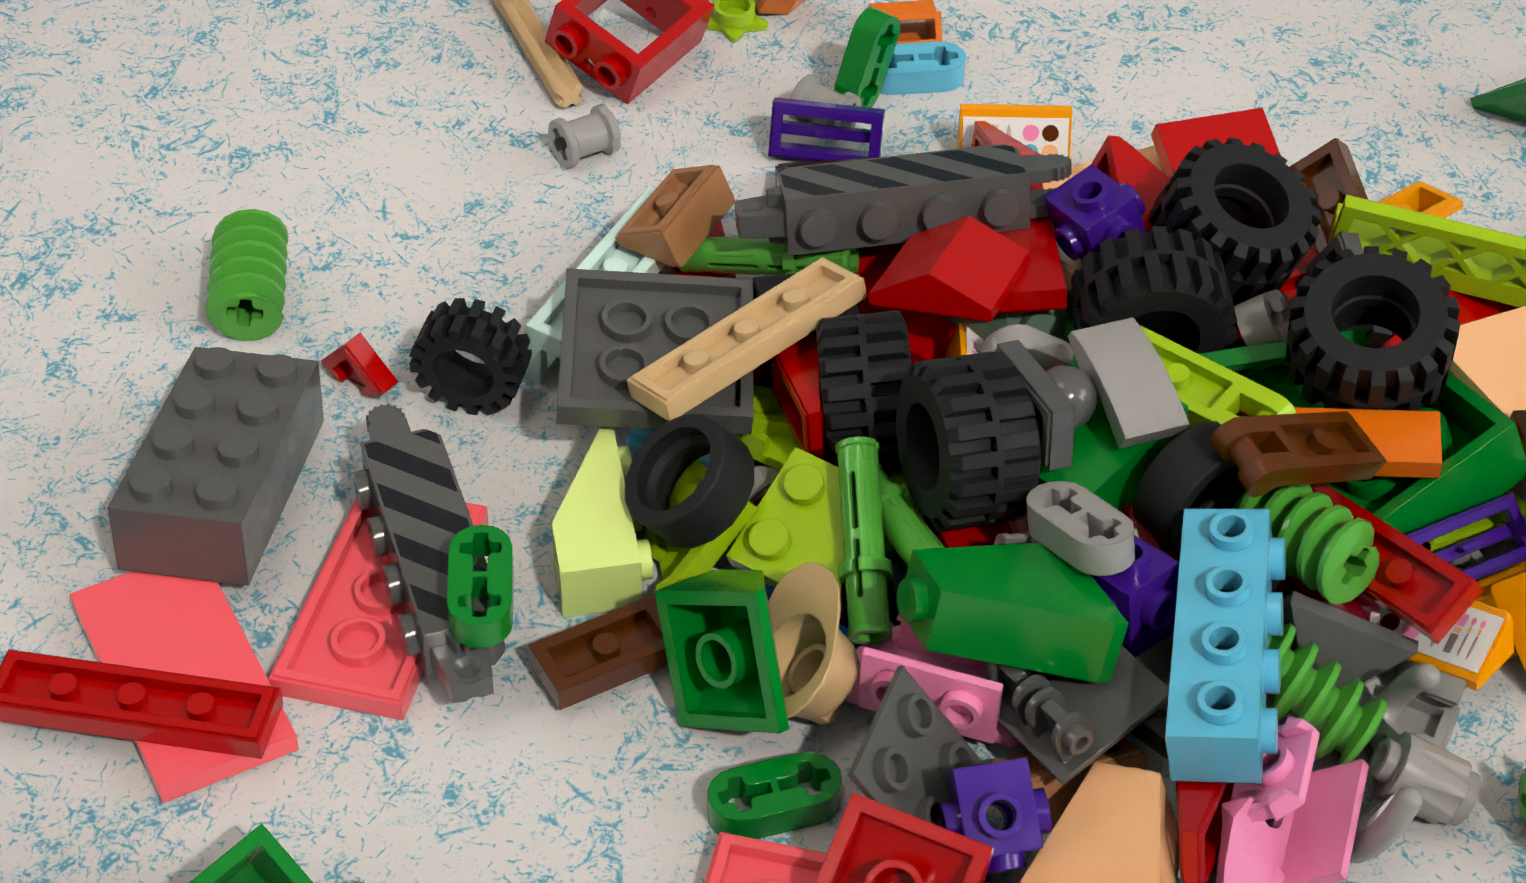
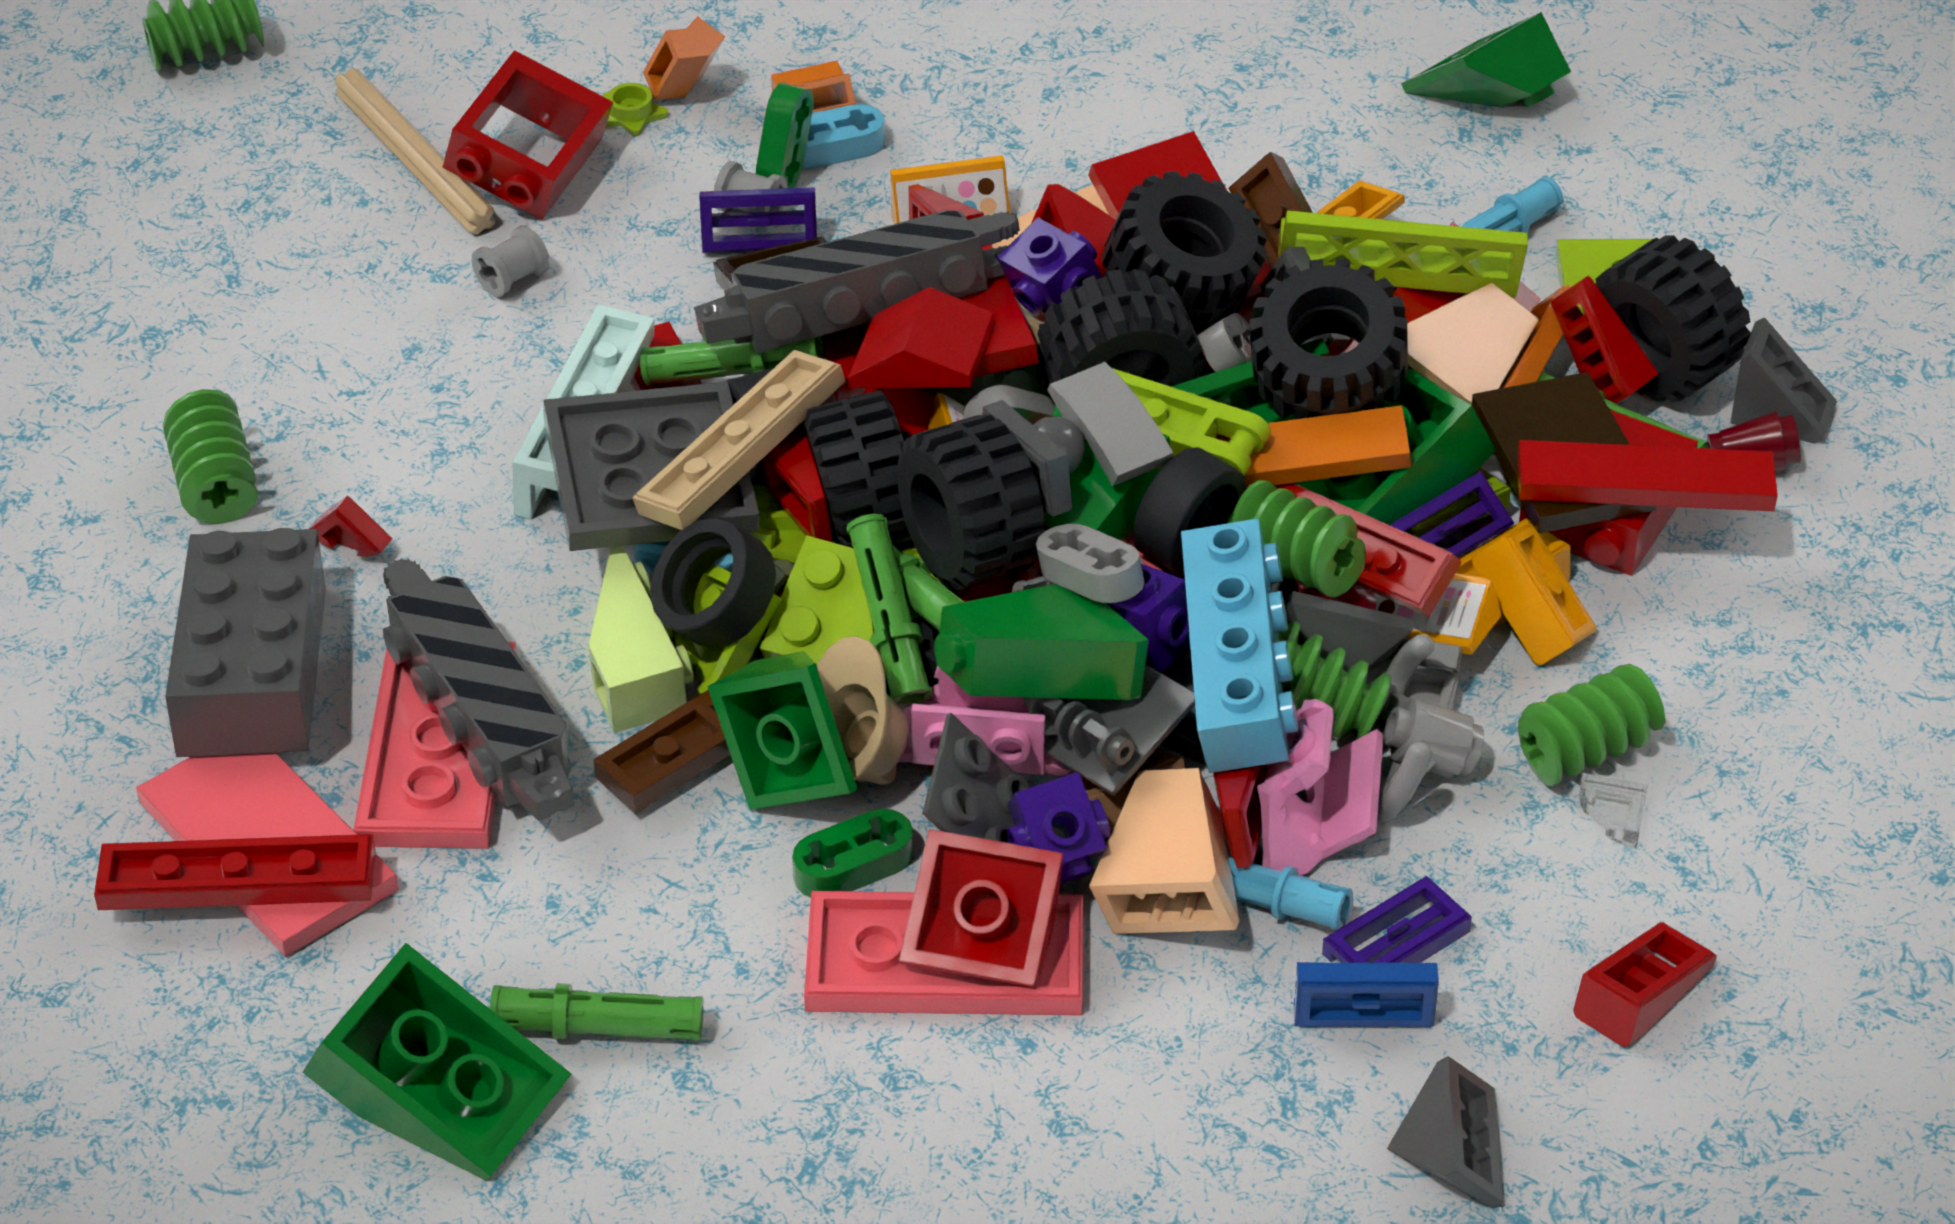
camera: 10 degrees left, 0 degrees up
(470, 585) = (533, 710): green beam -> none
(481, 335) = (468, 477): black tyre -> none
(678, 215) = (635, 328): medium nougat slope -> none
(1297, 450) = (1275, 461): reddish brown plate -> none

